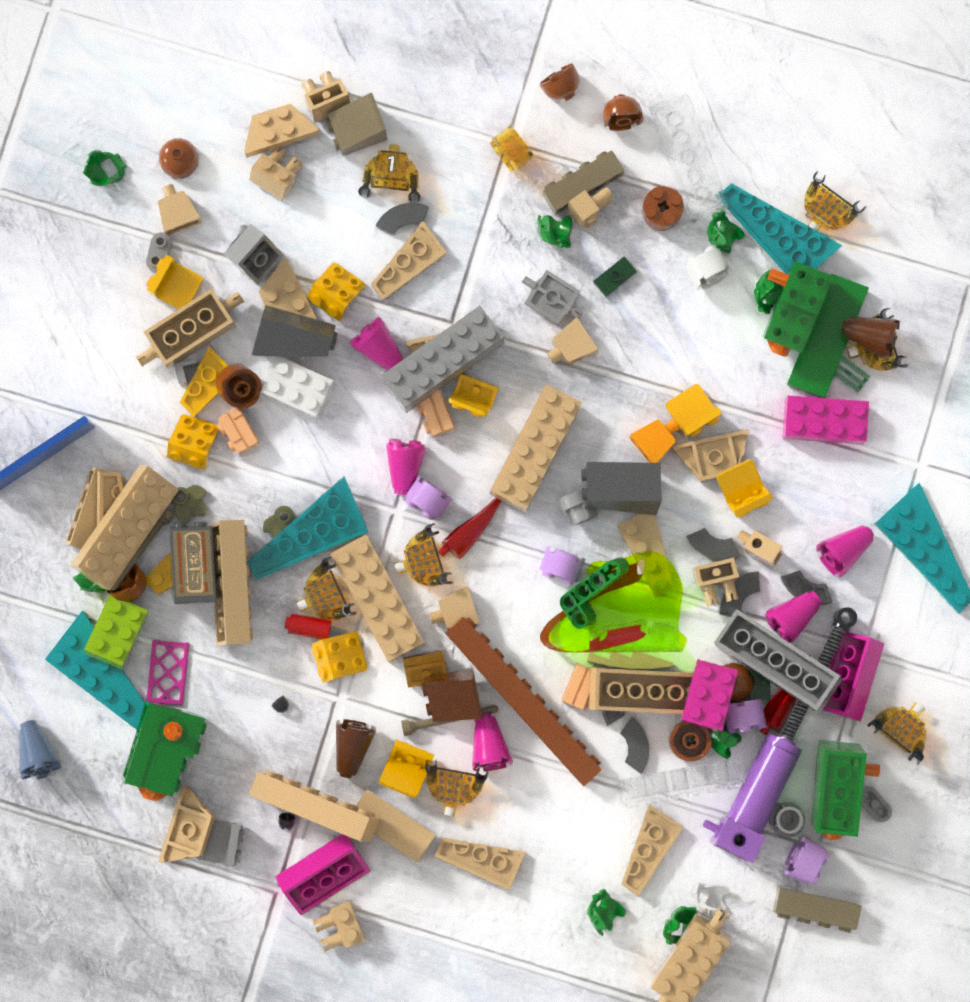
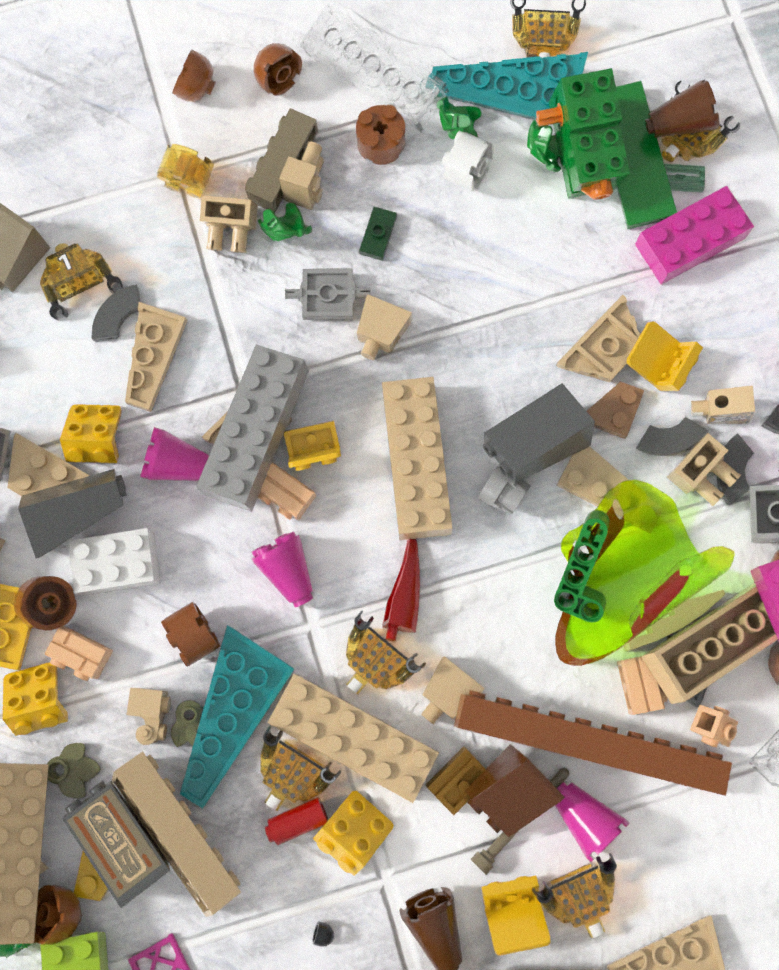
camera: 30 degrees left, 5 degrees down
(165, 519) = (53, 807): dark tan piece -> none
(263, 496) = (152, 707): none -> tan brick
(317, 466) = (190, 633): none -> dark orange brick
(428, 498) = (336, 588): lavender brick -> none
(525, 201) = (228, 212): none -> tan brick
(562, 565) = (530, 563): lavender brick -> none
(607, 741) = (714, 726): none -> light nougat brick
(637, 745) = (745, 707): dark grey tile -> none
(655, 439) = (534, 368): light orange torso -> none
(689, 502) = (617, 409): none -> medium nougat wing
(693, 411) = (553, 314): yellow bracket -> none

